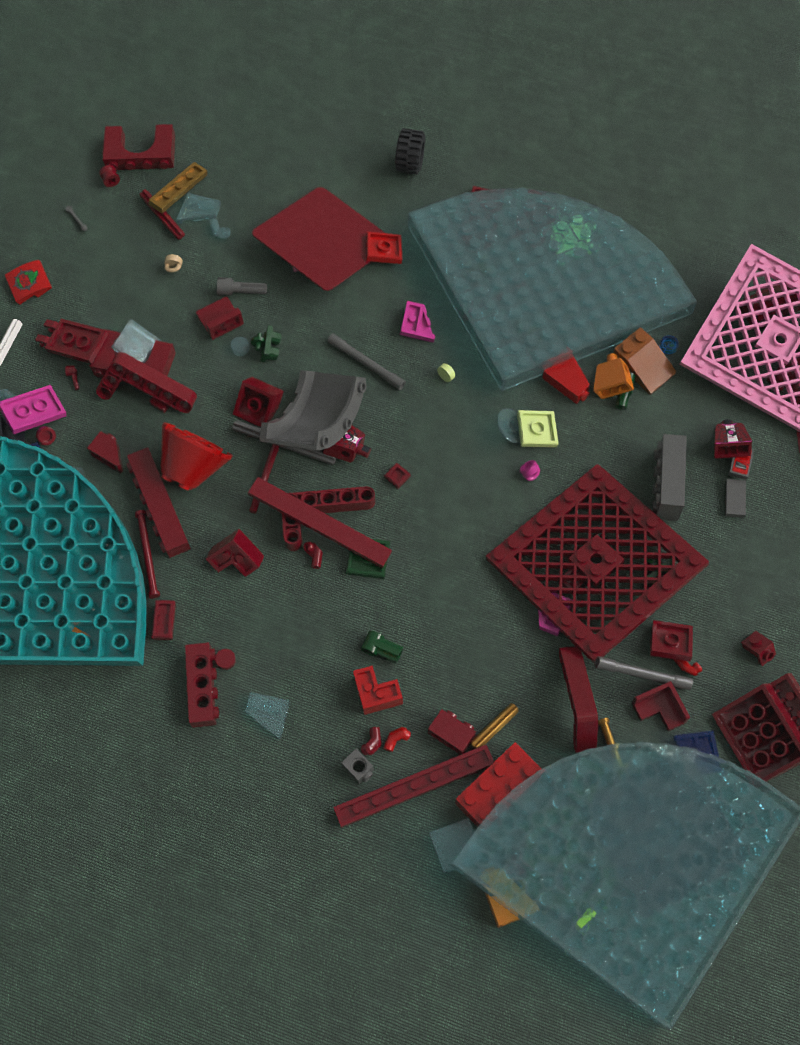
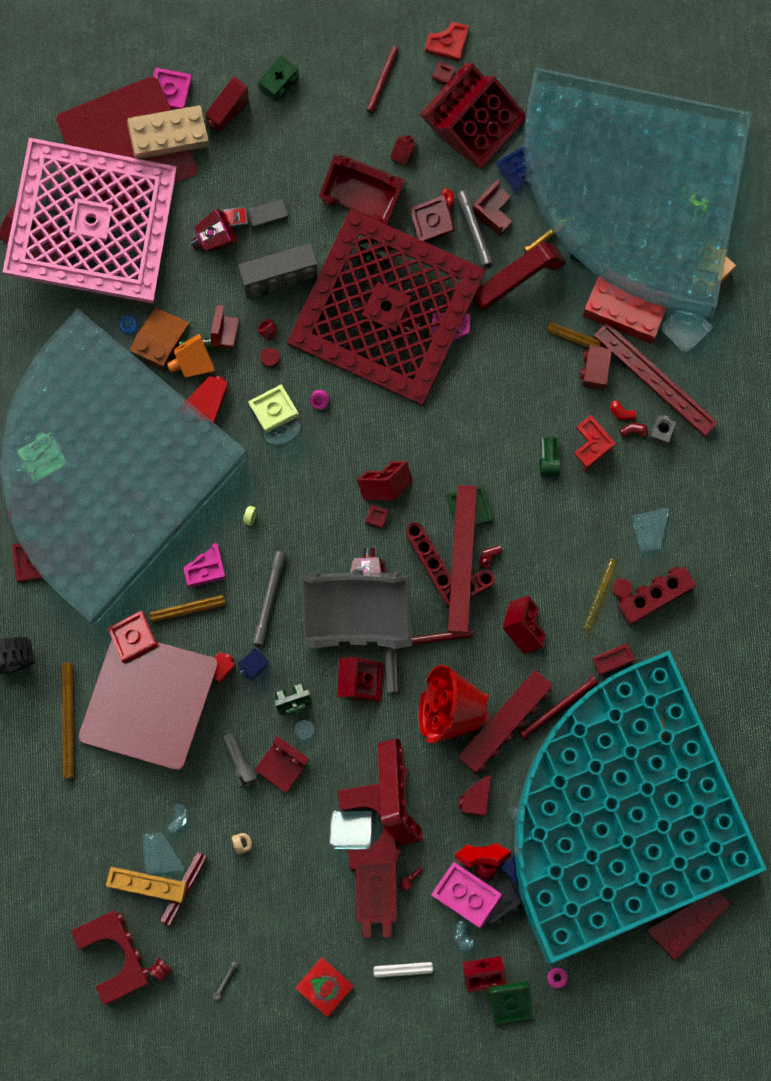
camera: 120 degrees left, 10 degrees up
(60, 428) = (473, 856): none -> red tile
(230, 636) = (599, 594): none -> clear yellow bar
(314, 326) = (253, 664): none -> clear blue brick
(324, 302) = (224, 667): none -> red brick
(340, 183) = (67, 721): none -> pearl gold axle
(388, 298) = (187, 608): none -> pearl gold axle
(422, 493) = (386, 483): none -> dark red panel
(589, 445) = (269, 357): none -> dark red tile
(618, 451) = (267, 329): none -> dark red tile
(632, 413) = (223, 329): none -> dark red panel
(732, 590) = (362, 188): none -> dark red windscreen

